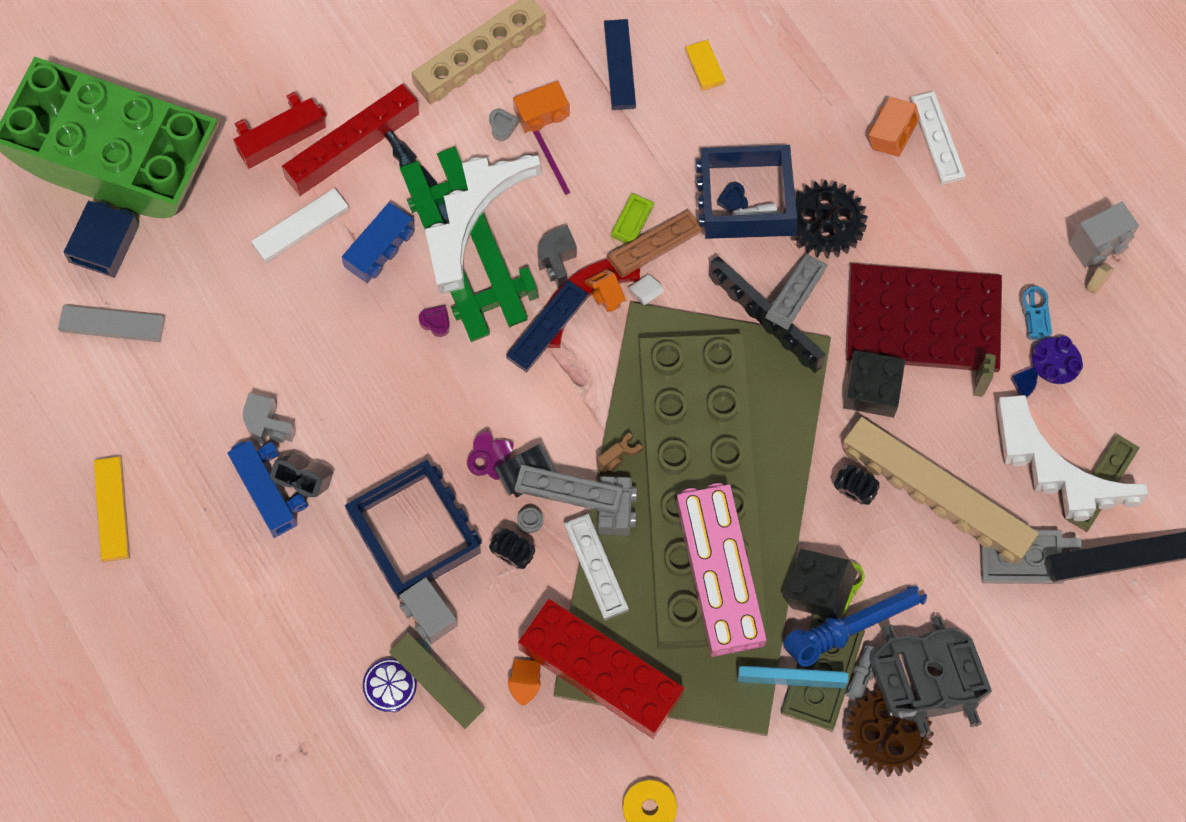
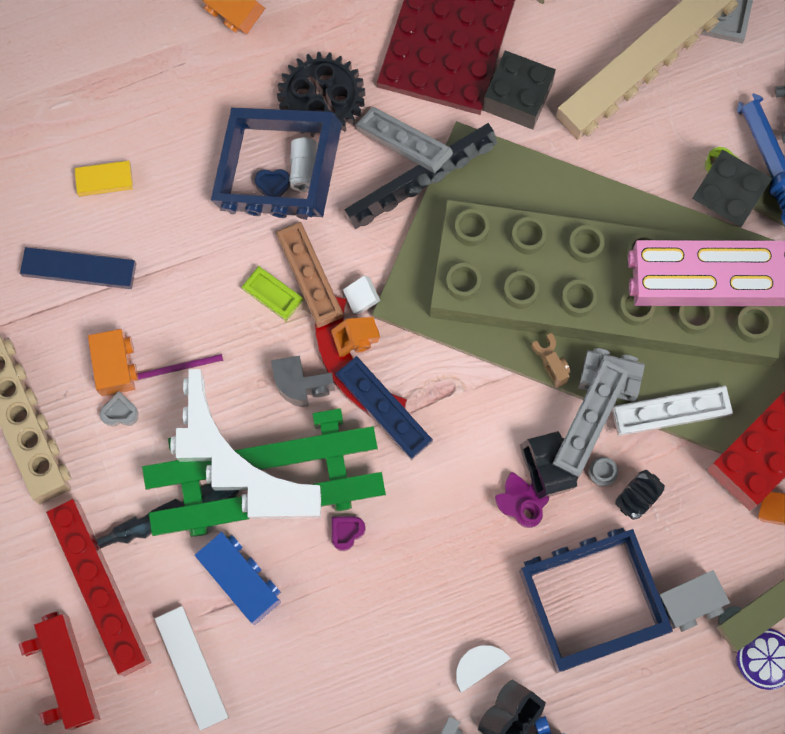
camera: 75 degrees left, 5 degrees up
(342, 445) = (478, 664): none -> white tile
(856, 484) = (628, 130): black gear -> none

